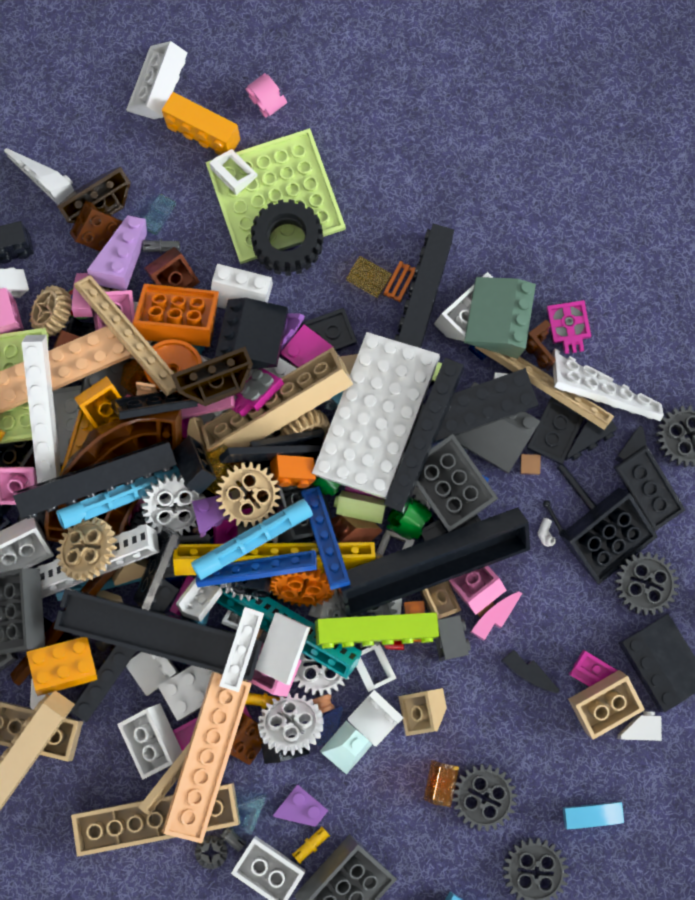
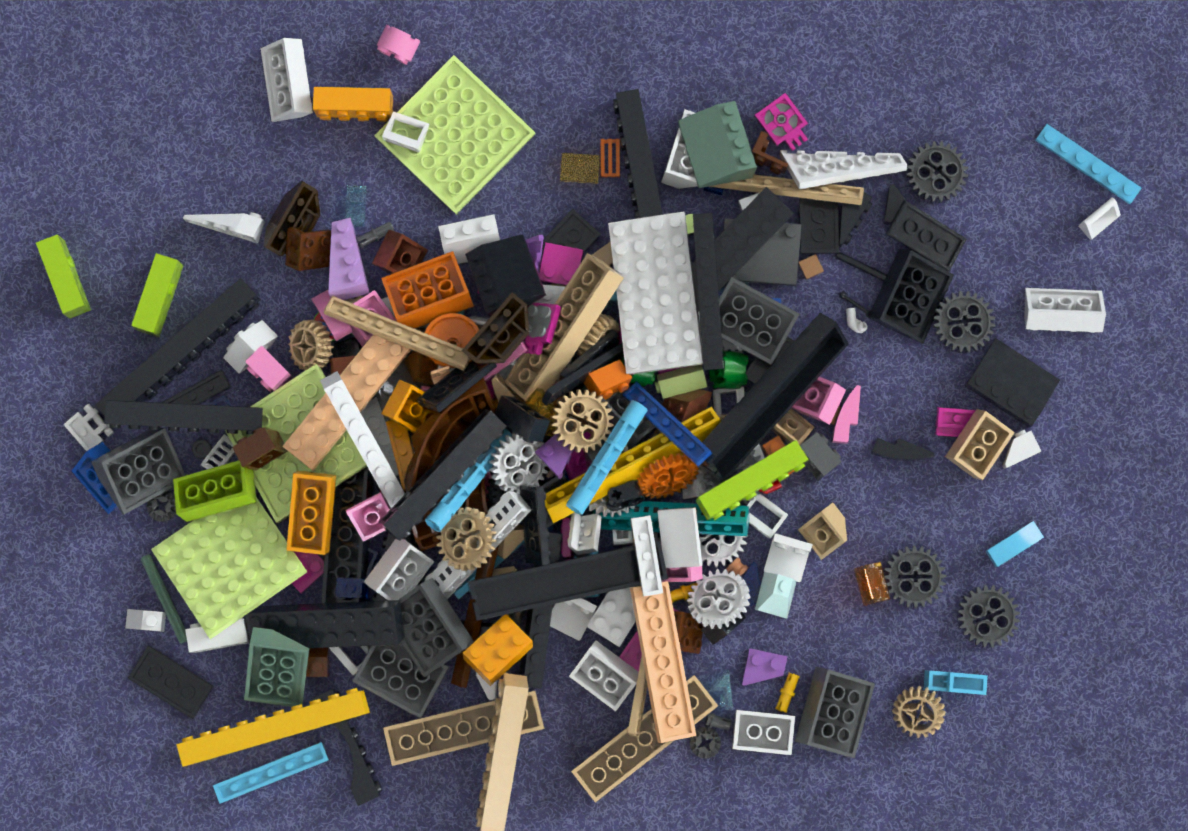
camera: 25 degrees left, 5 degrees up
(262, 568) = (628, 478): blue tile -> none
(283, 214) = (489, 145): black tyre -> none

